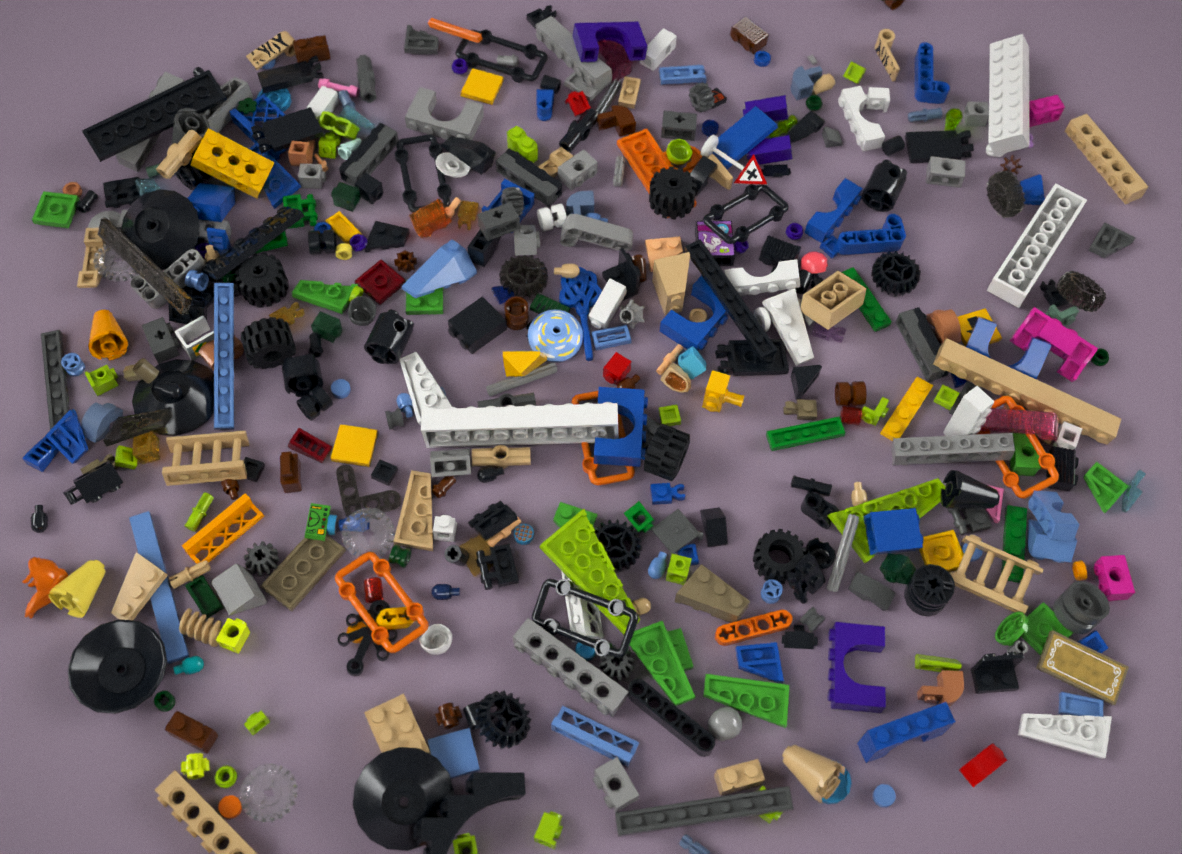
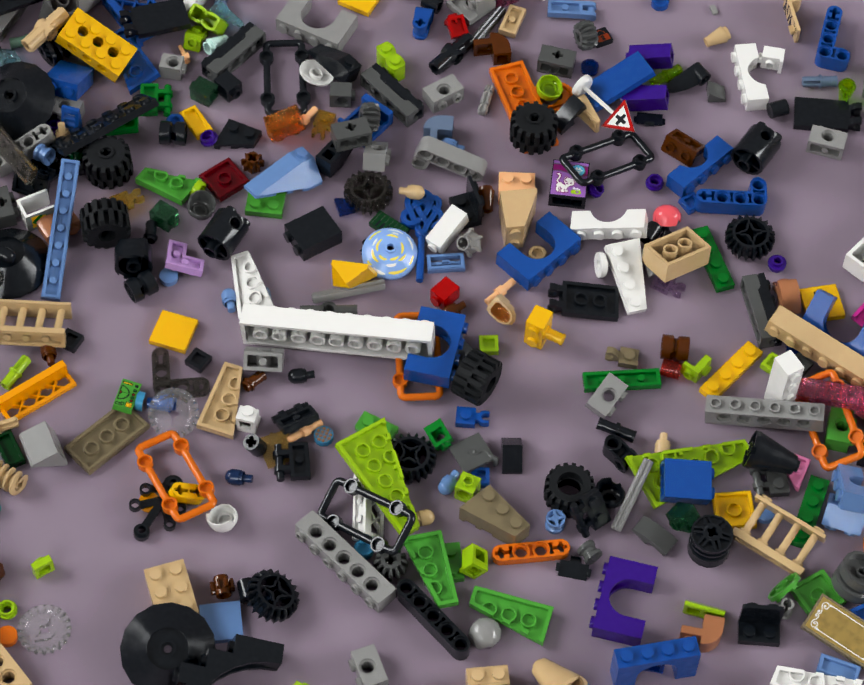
camera: 10 degrees right, 5 degrees down
(233, 643) = (33, 494): neon yellow brick -> none
(264, 564) = (68, 422): dark grey gear -> none
(290, 472) = (108, 347): reddish brown piece -> none
(300, 433) = (128, 317): dark red slope -> none
(301, 152) = (166, 42): nougat brick -> none
(343, 251) = (193, 145): light yellow bush -> none
(349, 372) = (178, 260): none -> lavender plate
(373, 589) = (170, 465): clear red piece -> none
(394, 418) = (216, 311): dark grey wheel -> none
(400, 556) = (200, 438): dark green wheel -> none
(480, 183) = (341, 94): none -> dark grey brick
(489, 456) = (323, 362): tan piece -> none
(516, 313) = (354, 226): reddish brown wheel -> none
(546, 219) = (401, 139): white wheel -> none
(555, 160) = (423, 79): tan slope -> none
(592, 740) = (355, 629): medium blue fence -> none
(692, 362) = (521, 297): medium azure panel -> none
(700, 647) = (474, 561): none -> lime brick
(731, 300) = (570, 240): black plate -> none
(761, 660) = (531, 582): blue wing -> none
(777, 250) = (632, 198): black brick -> none
(787, 459) = (611, 385): none -> light grey brick
(803, 378) = (632, 327): black slope -> none
(804, 80) = (697, 30): sand blue brick -> none
(813, 194) = (682, 147): none -> reddish brown bracket
(814, 103) = (704, 55): dark green plate -> none
(854, 72) = (754, 28): lime plate -> none
(924, 299) = (777, 267): none -> dark purple plate

